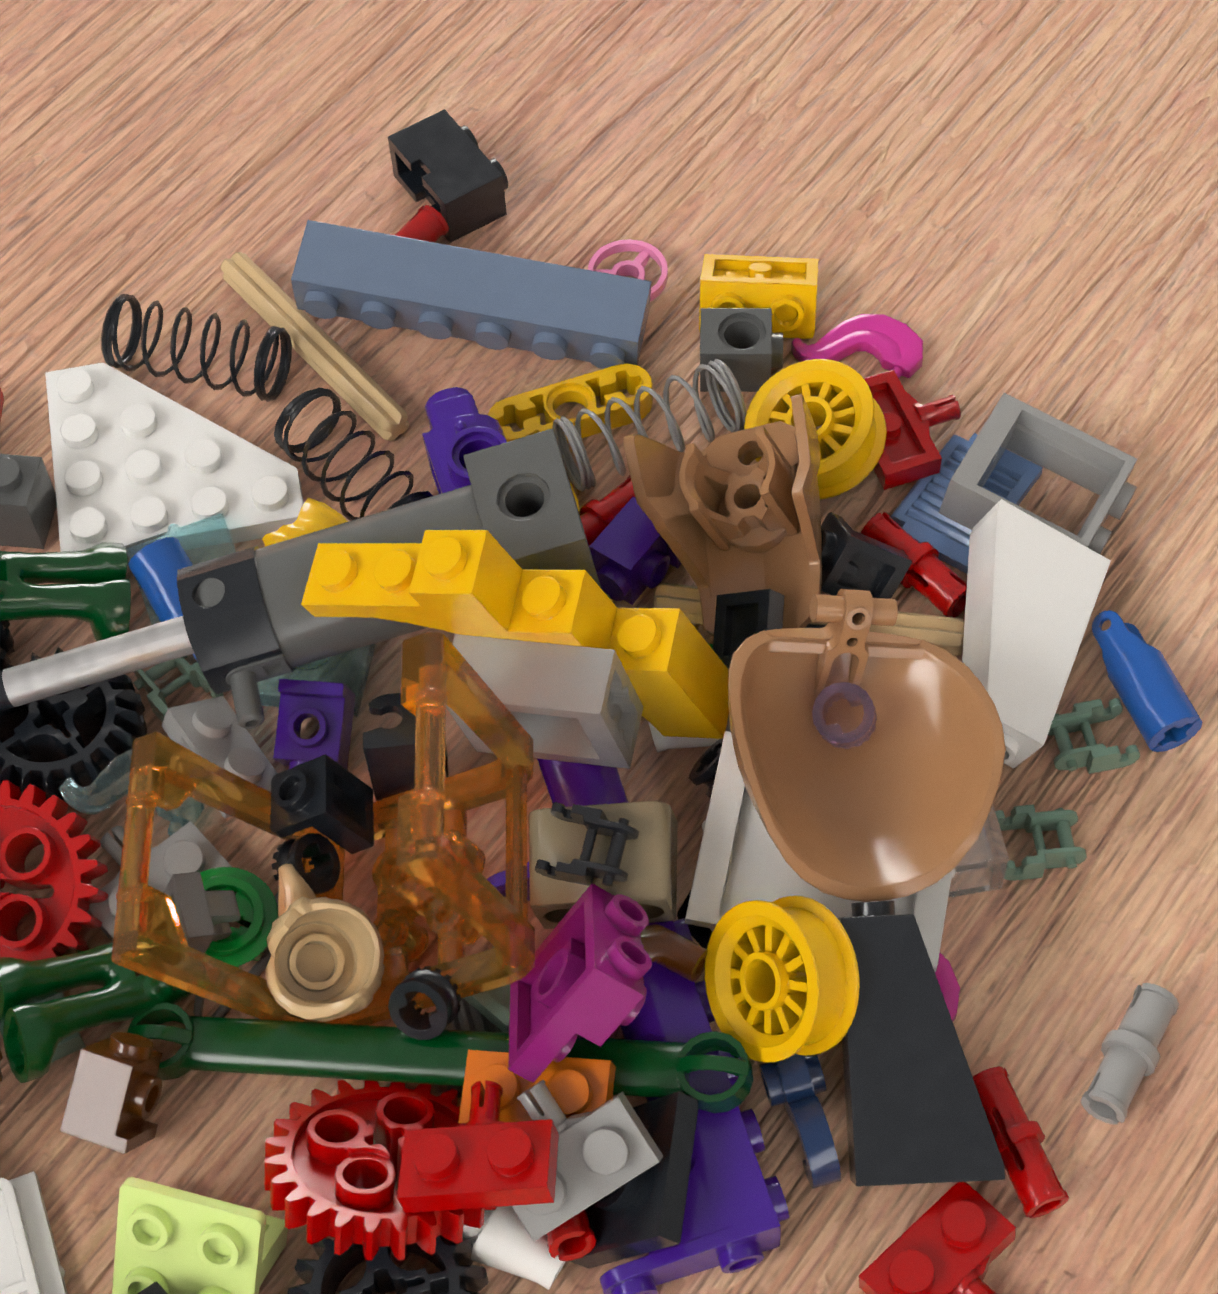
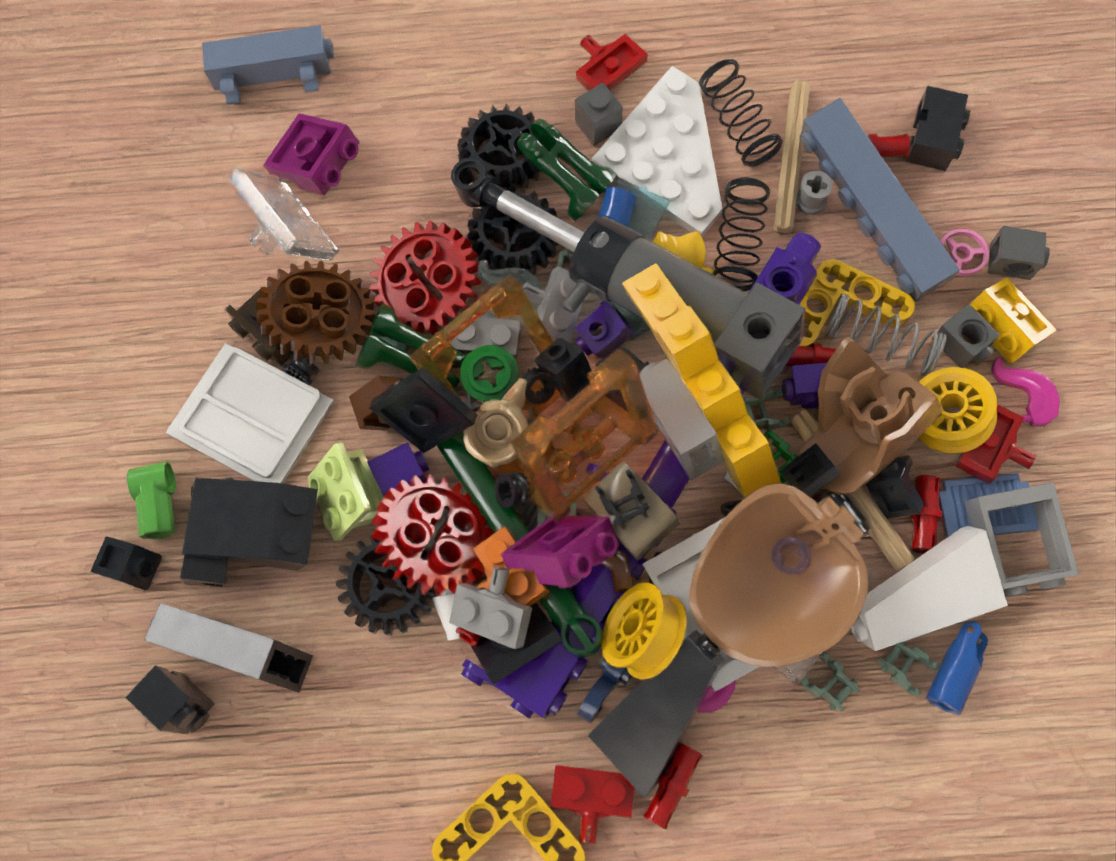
camera: 50 degrees right, 15 degrees up
(197, 1025) = (423, 410): none -> black tile
(201, 912) = (470, 365): dark grey tile -> none
(232, 1152) = (397, 466): none -> dark purple brick
(387, 348) = (814, 192): none -> light grey bush
(479, 1160) = (453, 575): red plate -> none
(686, 220) = (1018, 253): none -> dark grey brick
(1130, 1053) = (758, 806): light grey pin -> none

